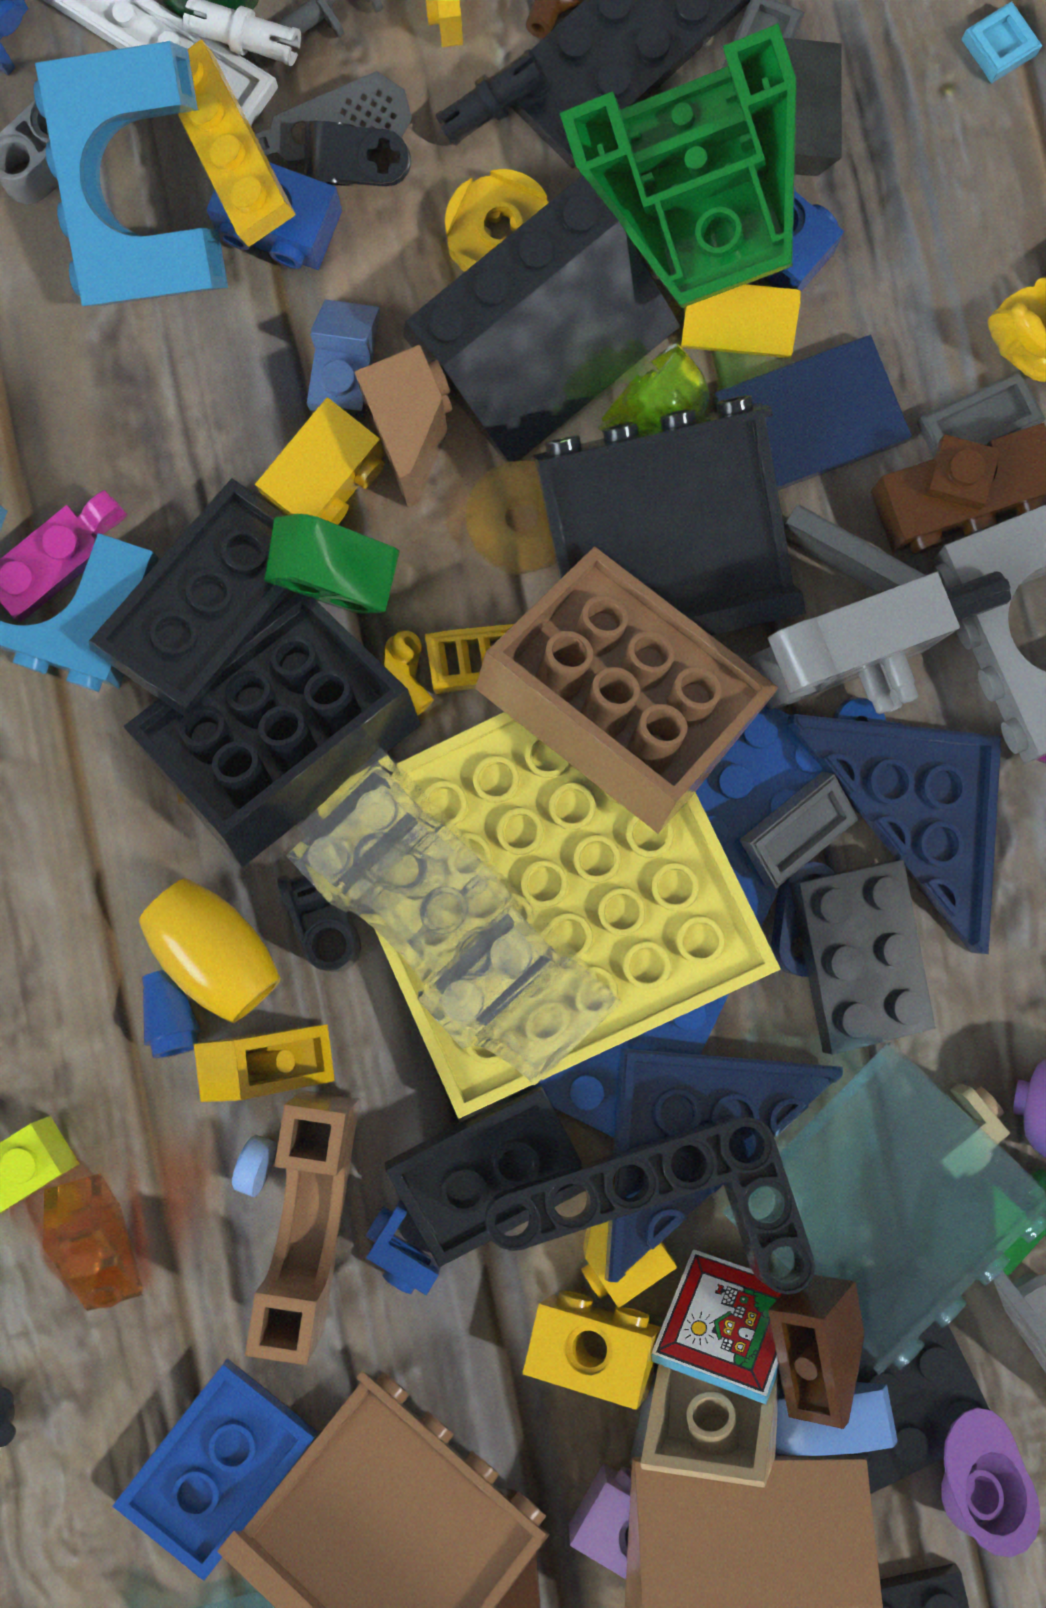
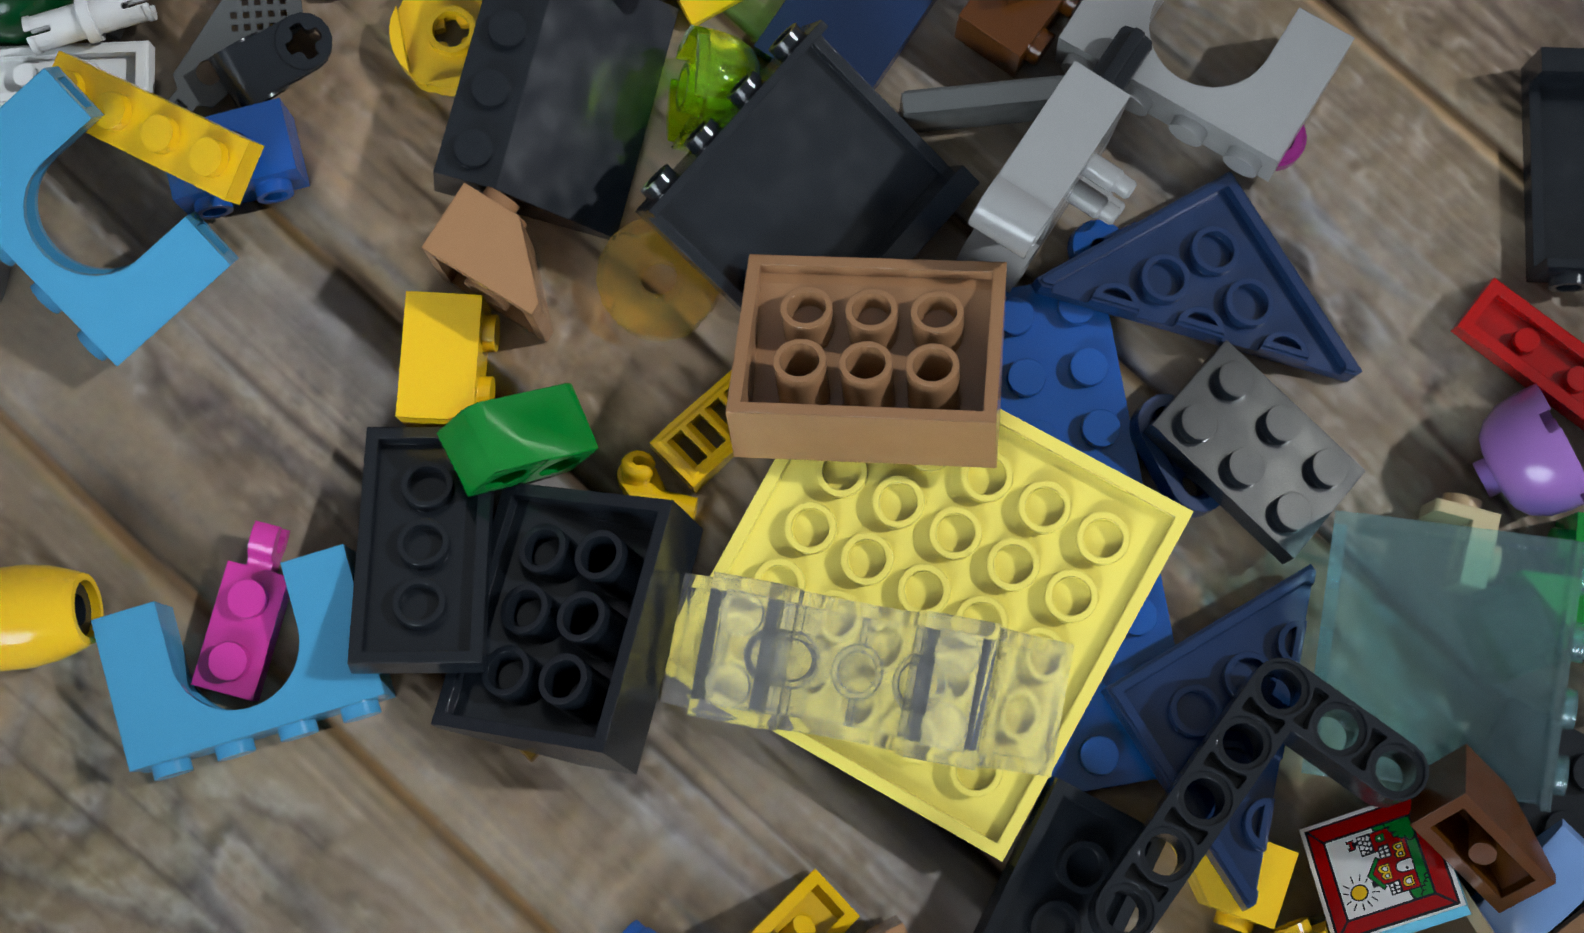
camera: 35 degrees left, 5 degrees down
(209, 950) = (658, 875): yellow piece -> none
(313, 918) = (736, 768): black piece -> none
(343, 343) = (389, 246): medium blue slope -> none
(799, 829) = (1115, 379): dark grey tile -> none

